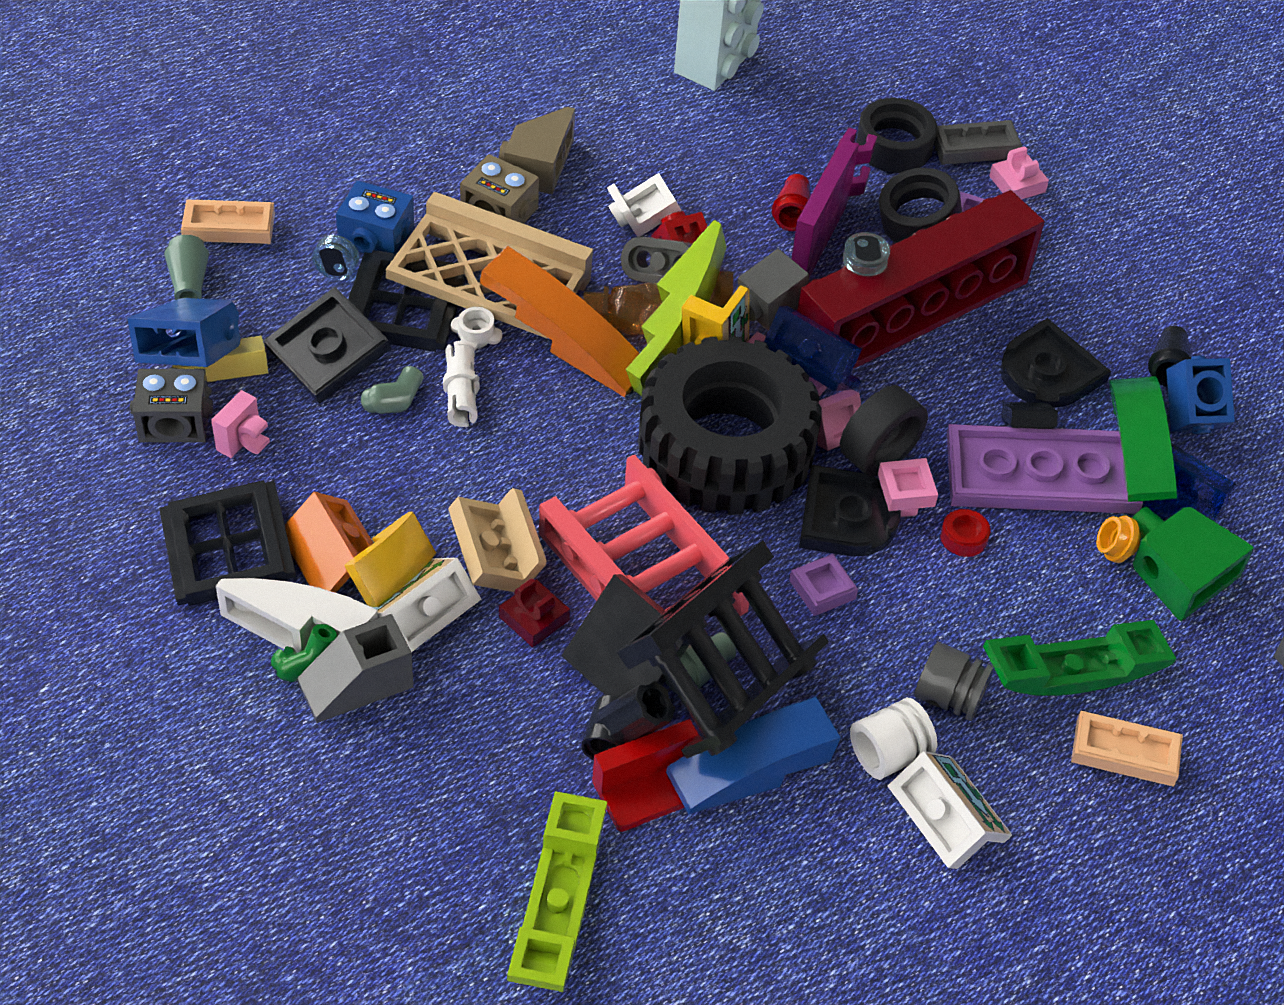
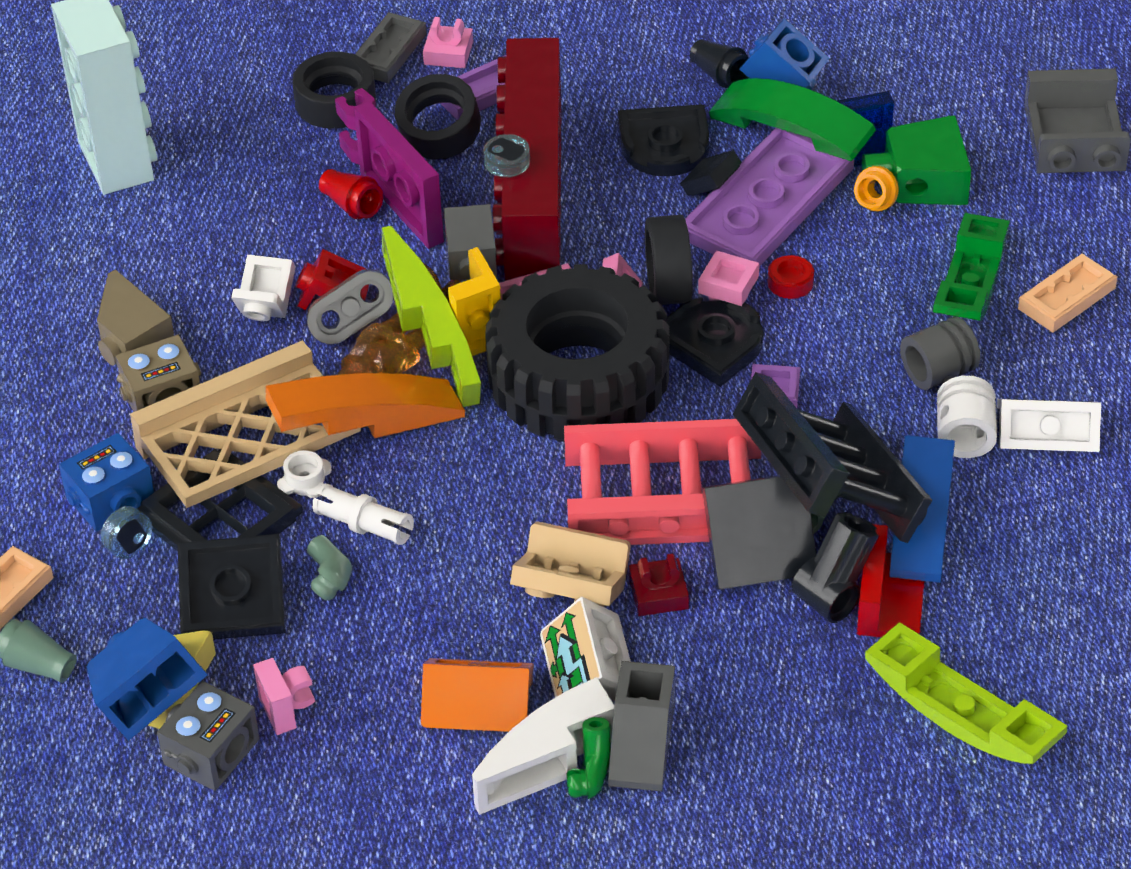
camera: 50 degrees left, 5 degrees down
(183, 551) = (391, 809): black piece -> none
(391, 560) = (541, 651): yellow slope -> none
(815, 348) = (562, 245): clear blue panel -> none

